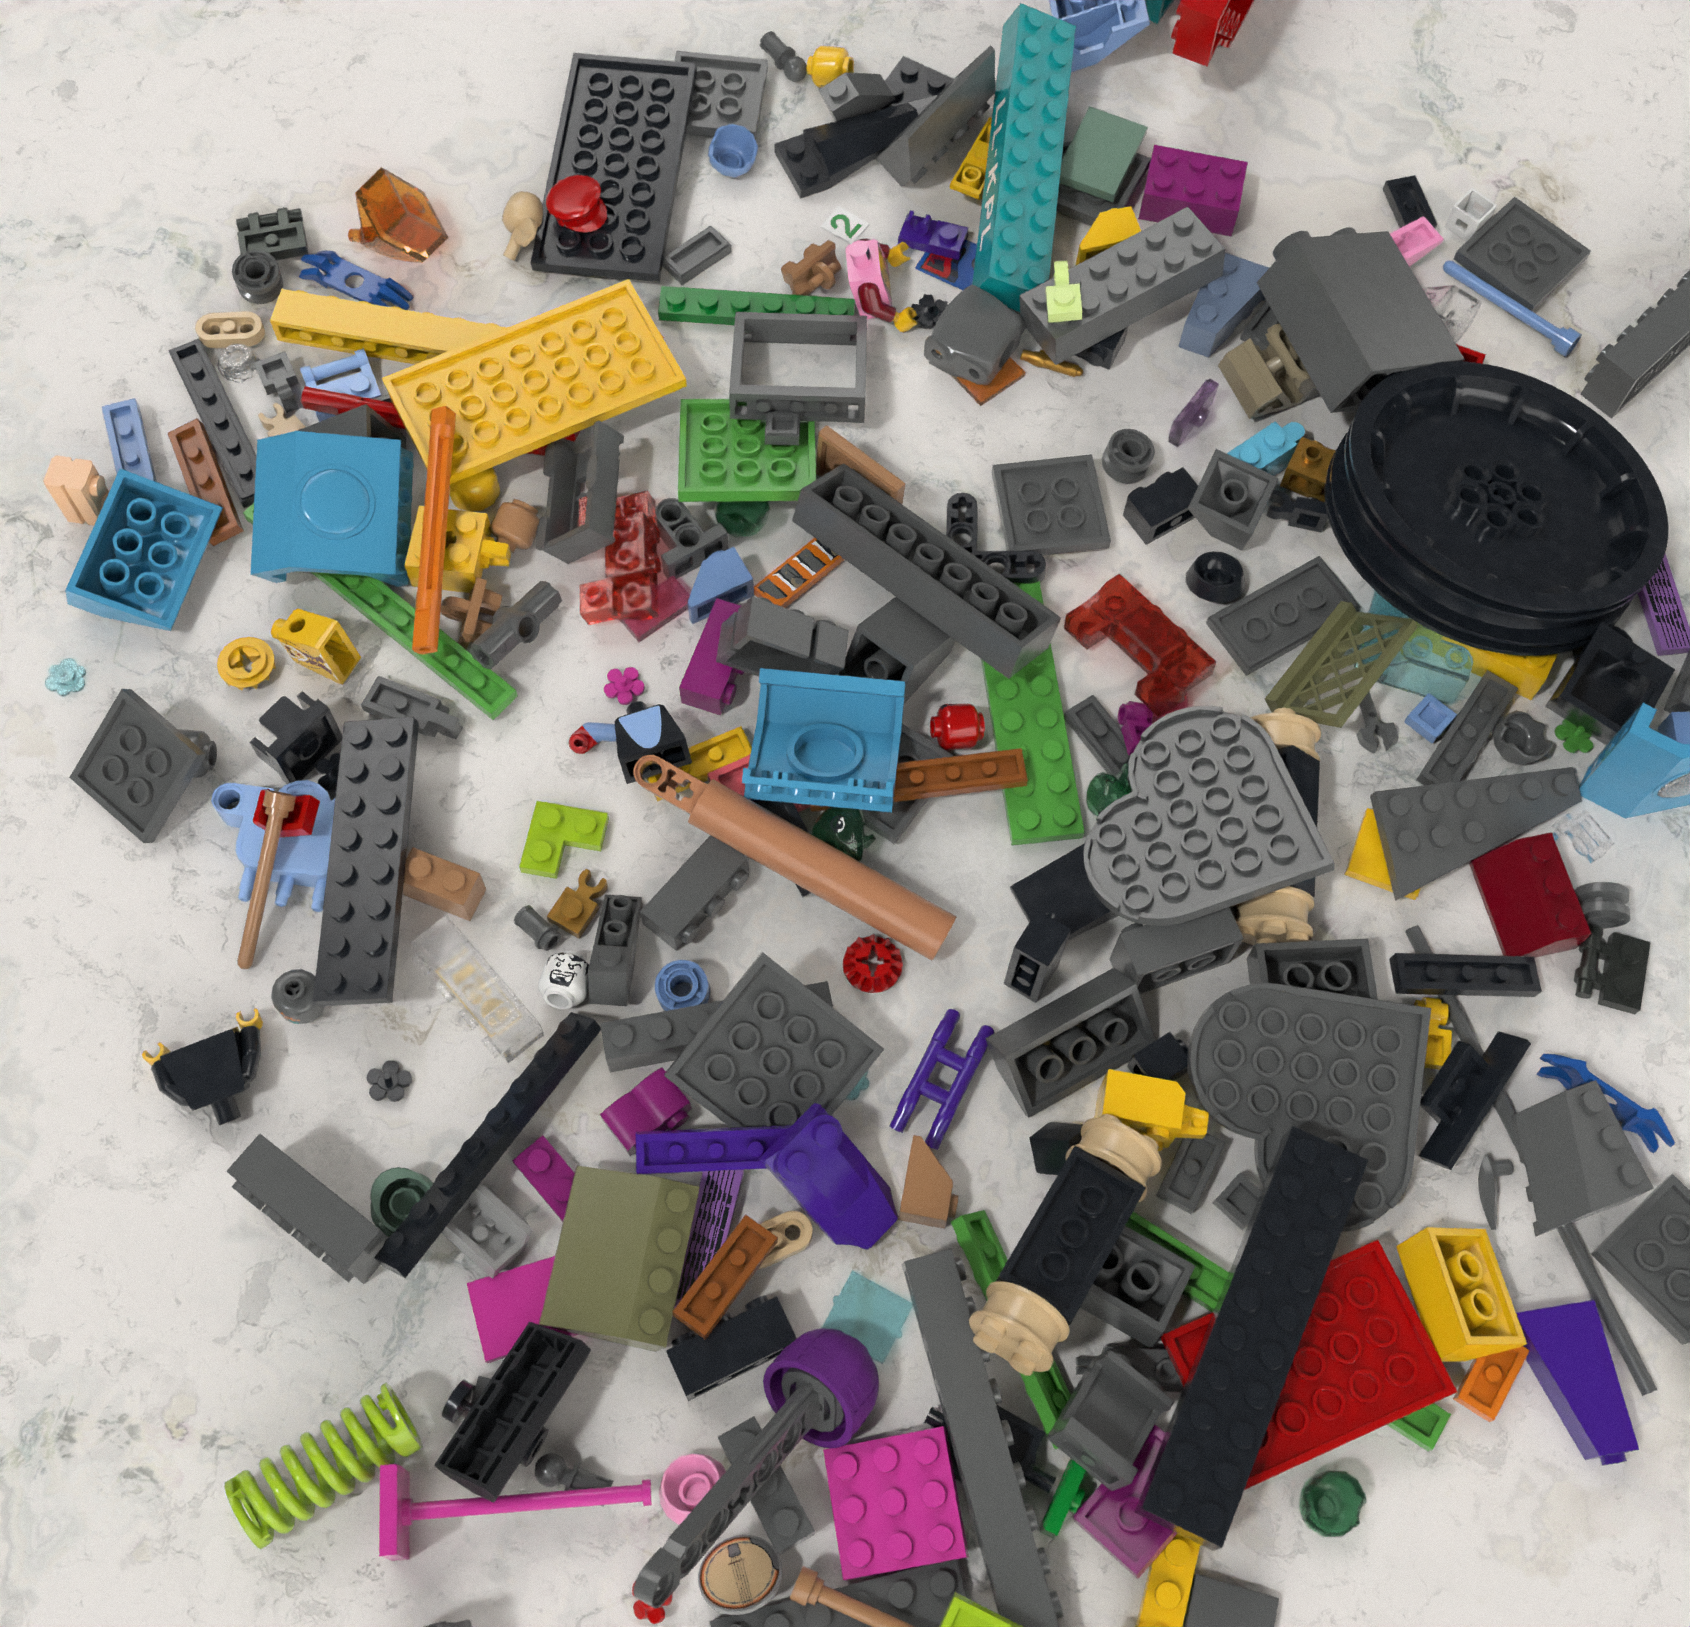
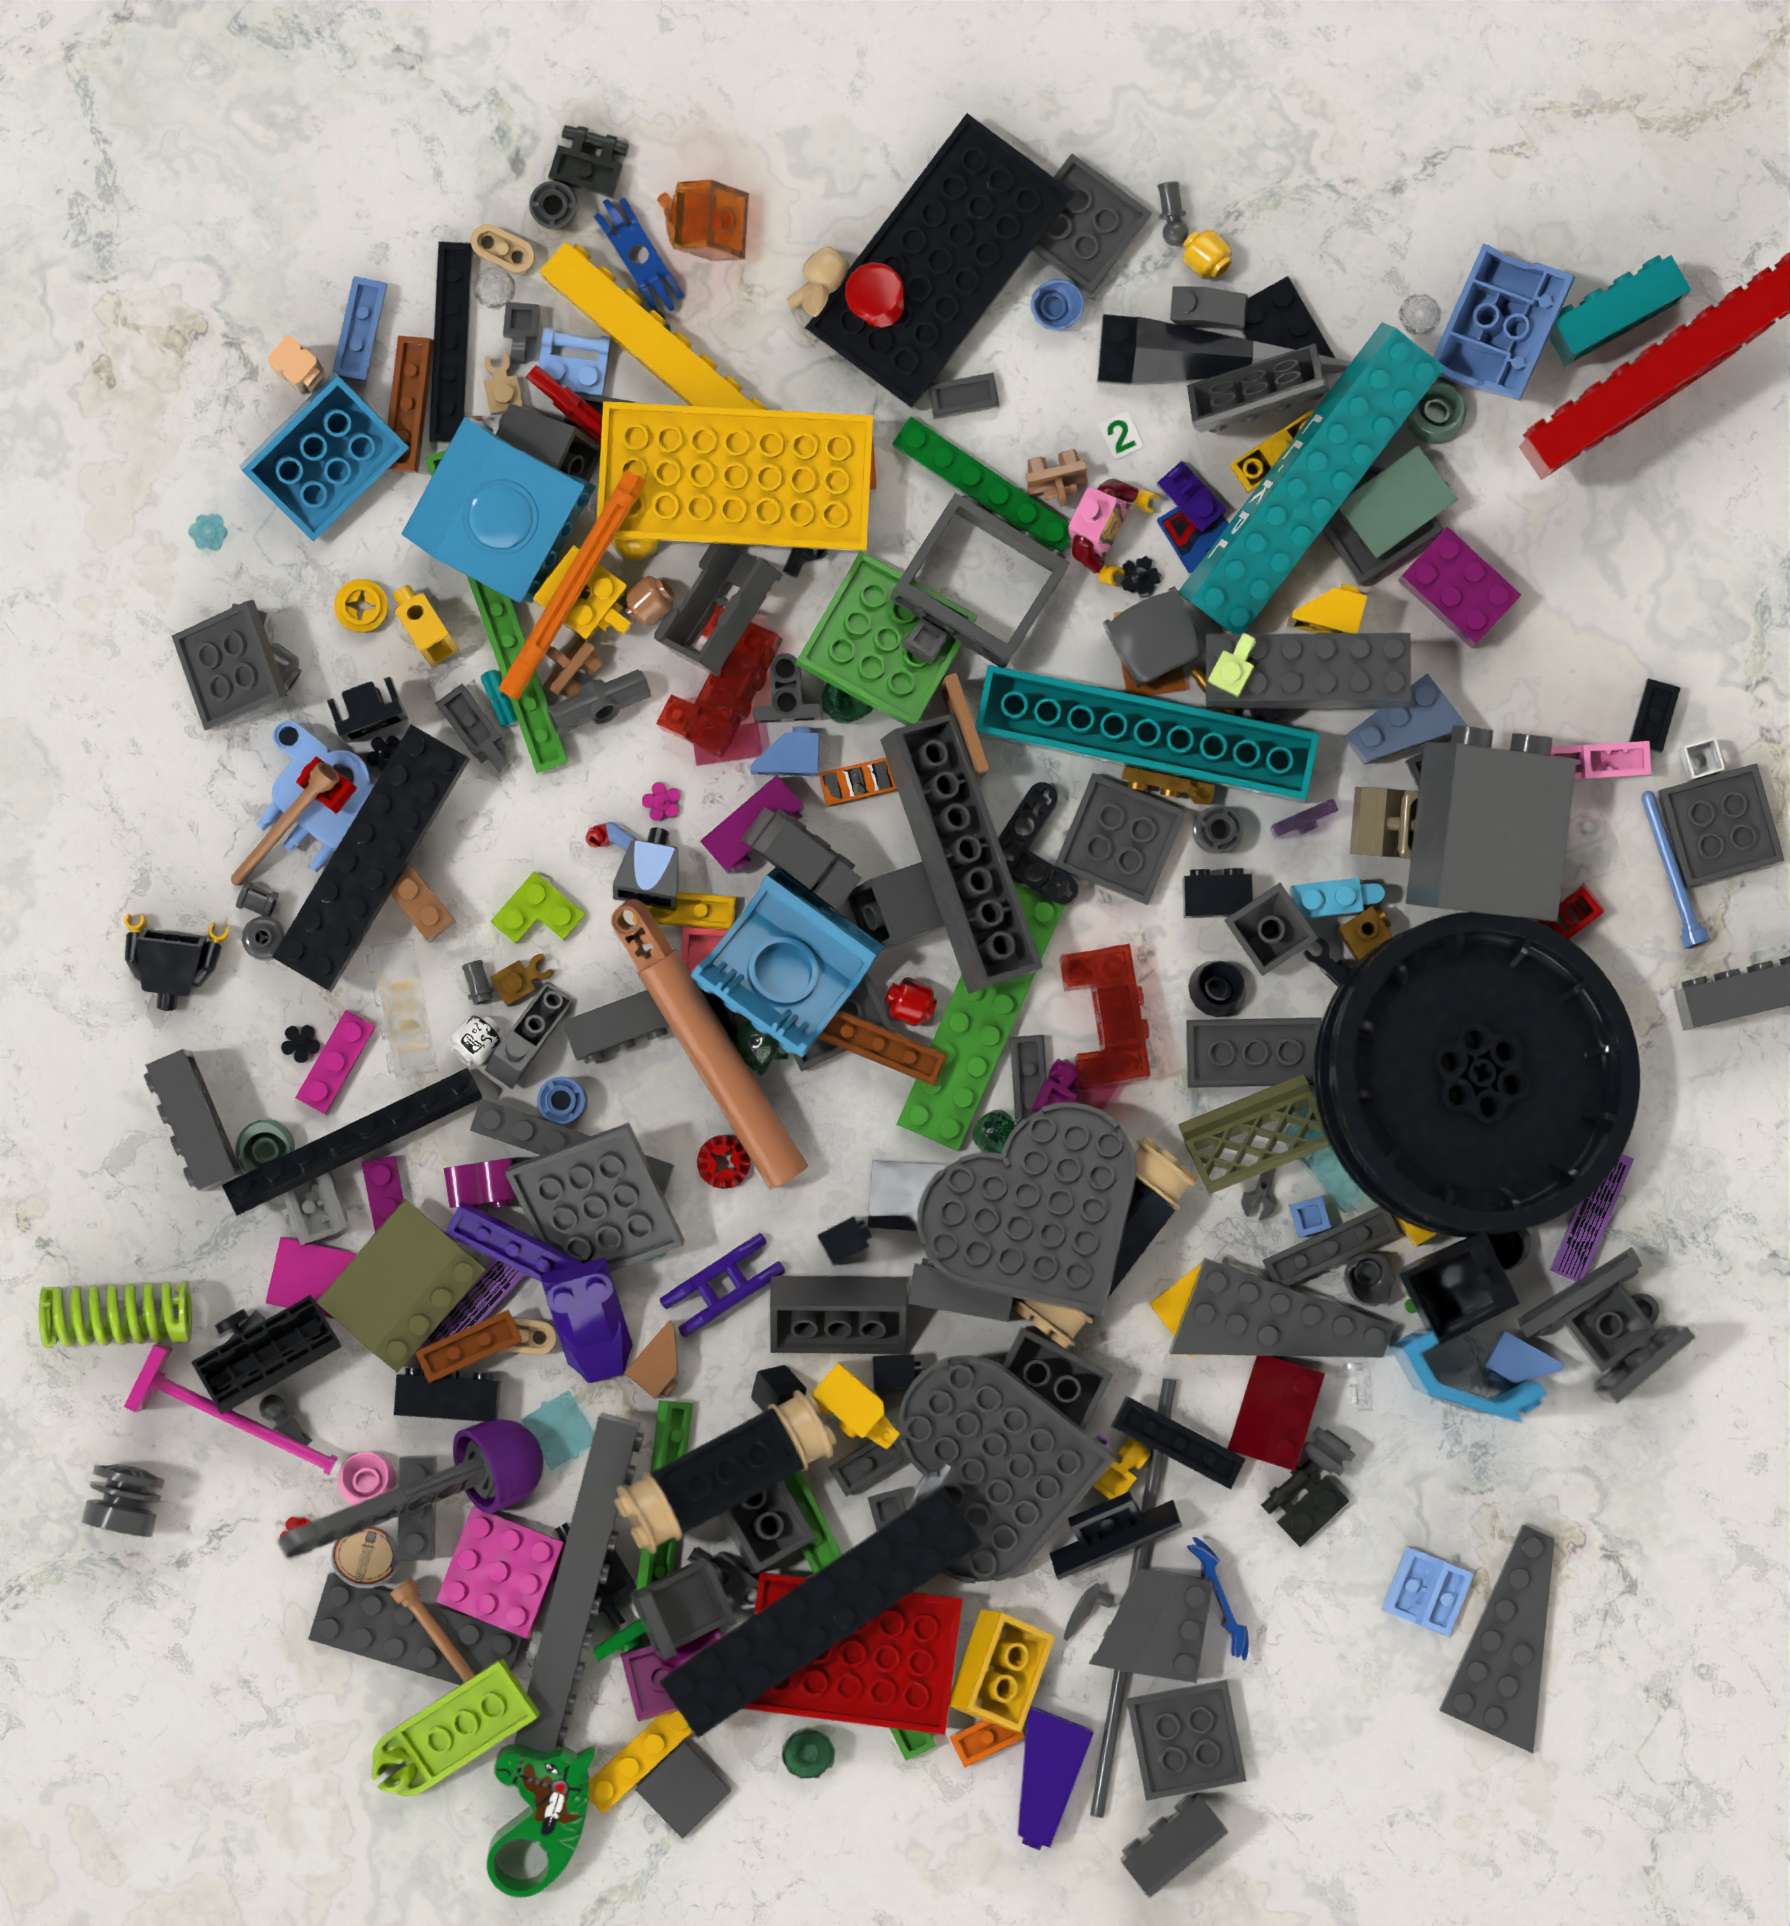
camera: 30 degrees right, 20 degrees up
(271, 967) = (257, 900): none -> dark grey bush
(425, 677) = (501, 704): none -> teal piece
(434, 1081) = (335, 1062): none -> dark pink plate
(633, 427) = (800, 556): none -> black arm
(1022, 408) = (1147, 734): none -> teal brick
(1061, 442) = (1170, 786): none -> pearl gold hinge
(1087, 88) = (1438, 414): none -> sand green piece

